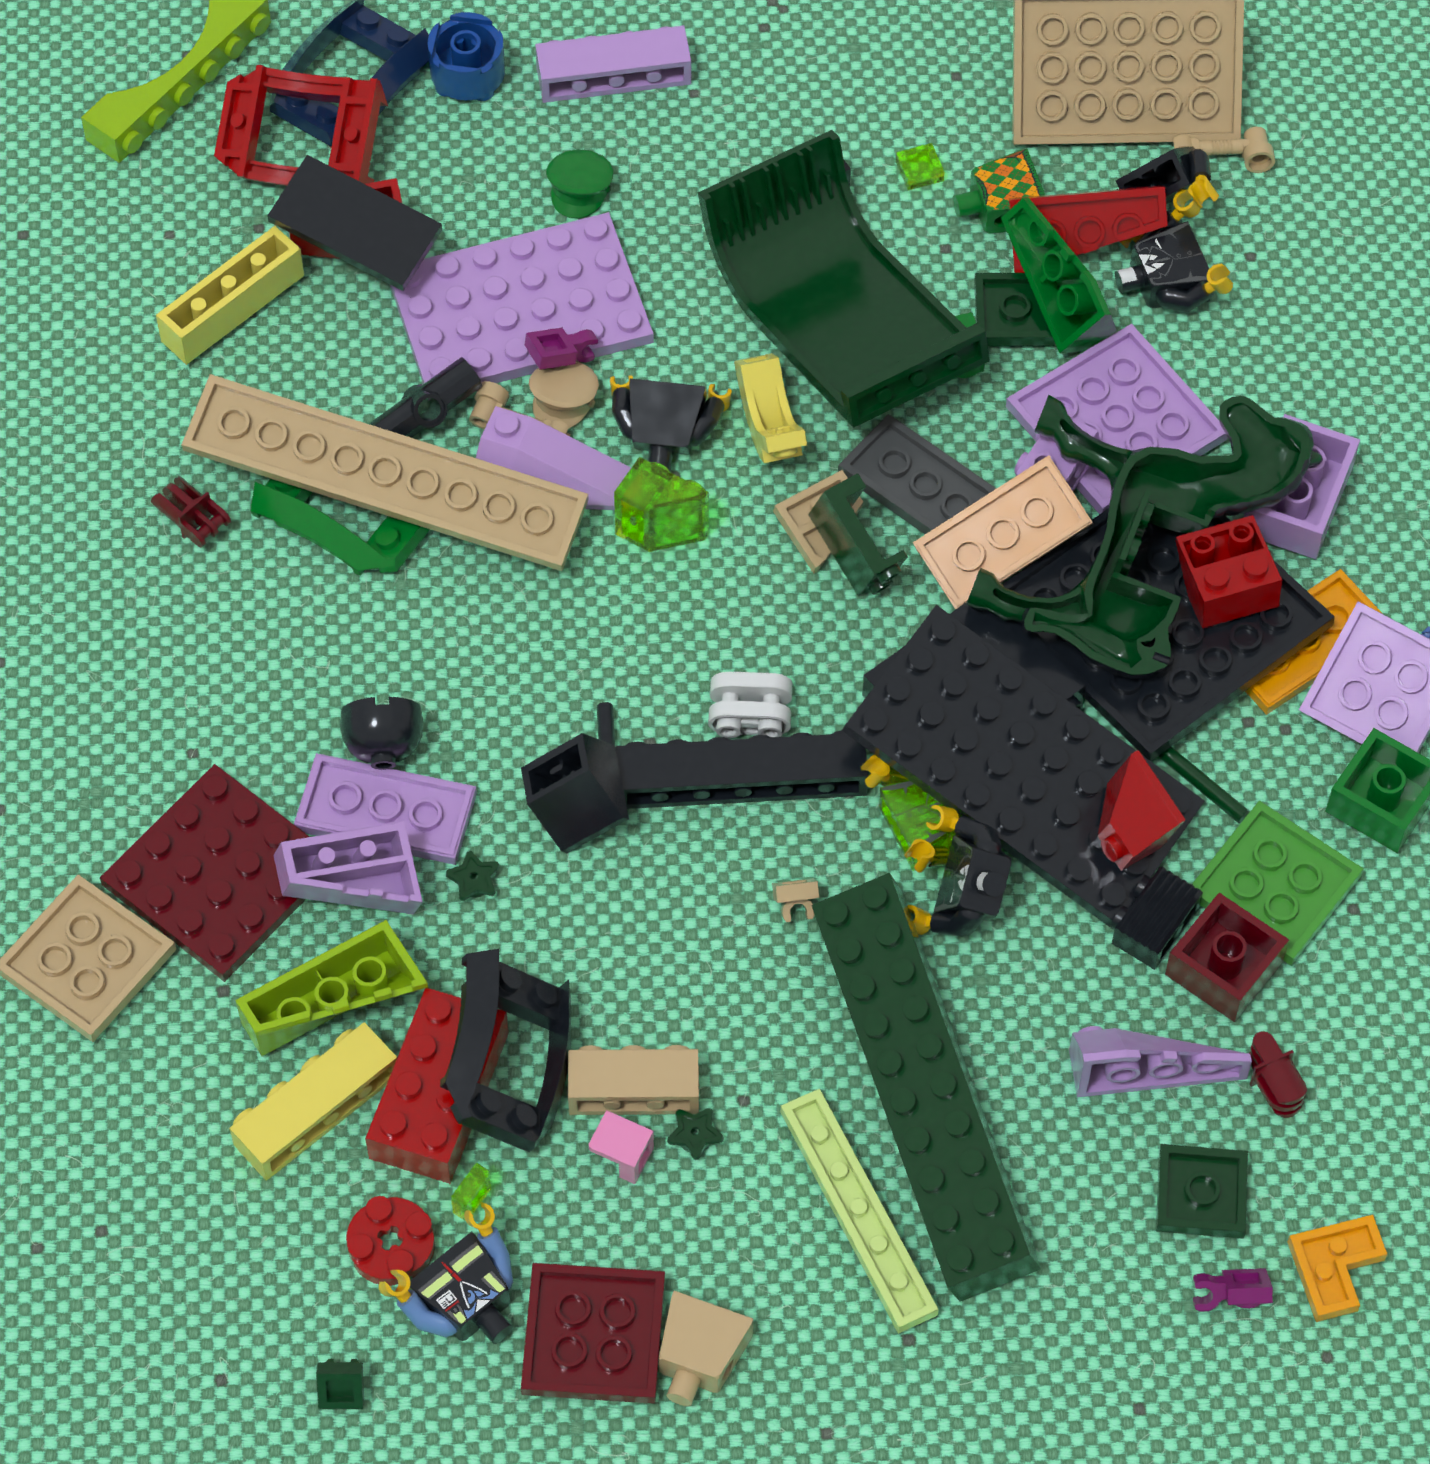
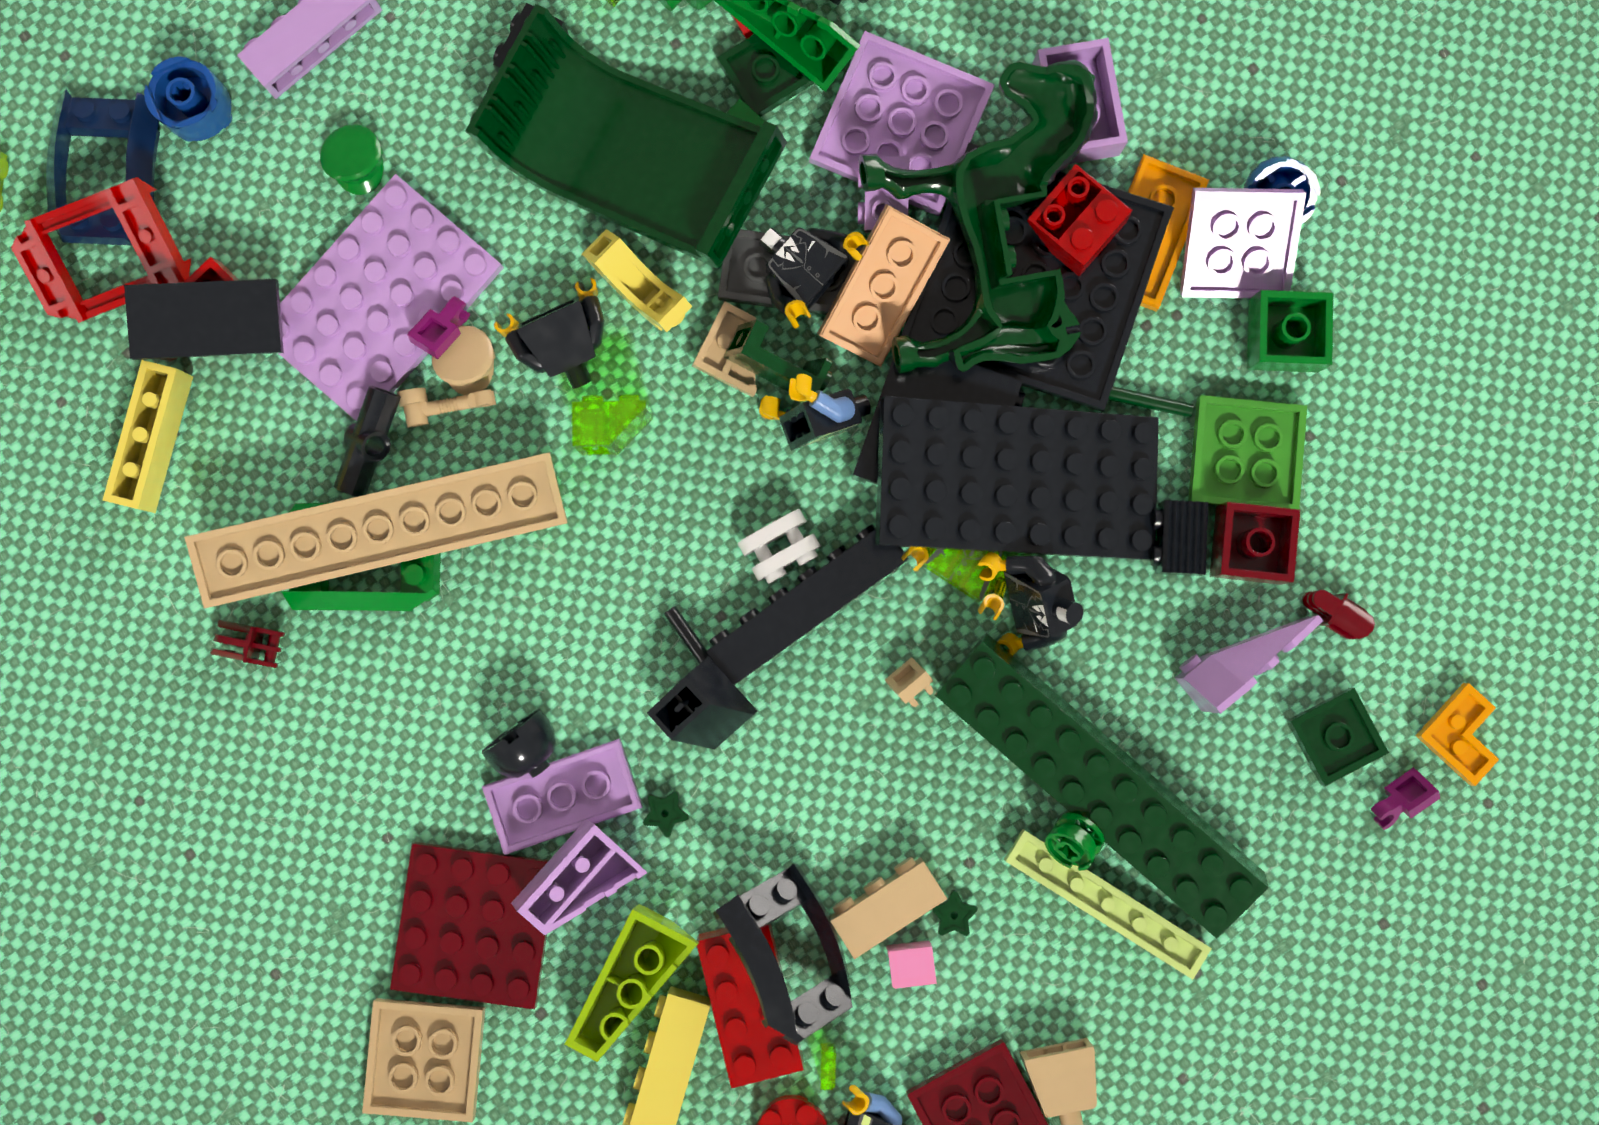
camera: 30 degrees left, 25 degrees up
(548, 454) = (497, 431): lavender wedge -> none
(858, 1114) = (1073, 843): none -> green wheel
(863, 603) = (818, 416): none -> torso
(939, 476) = (806, 266): none -> black torso
(1136, 814) = (1134, 479): red slope -> none

